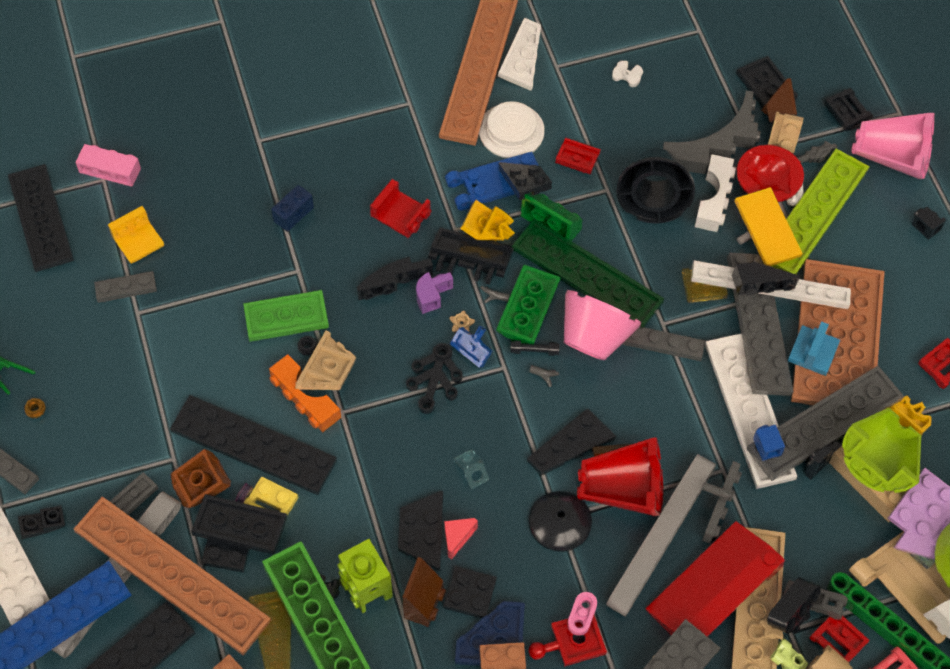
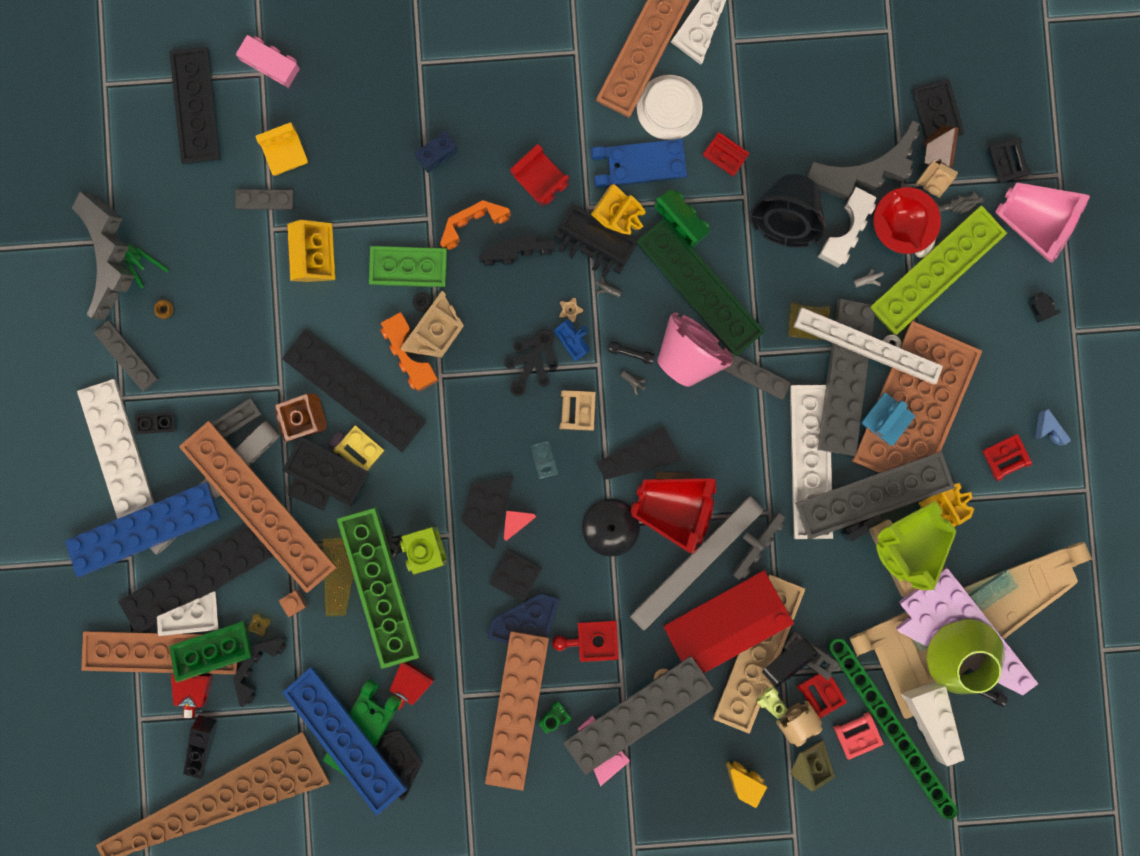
camera: 10 degrees right, 25 degrees up
(182, 321) = (311, 251): none -> yellow slope
(364, 248) = (497, 213): none -> orange slope
(422, 594) = (472, 576): reddish brown slope -> none
(429, 289) = (544, 272): medium lavender brick -> none
(501, 412) = (584, 410): none -> tan plate
(525, 179) = (665, 177): black wing -> none
(528, 305) = (636, 308): green slope -> none
(582, 614) = (606, 624): bright pink plate -> none
(632, 77) = (806, 72): white piece -> none
(759, 278) = (856, 342): black slope -> none
(768, 227) = (885, 281): yellow tile -> none
(768, 442) = (815, 507): blue brick -> none

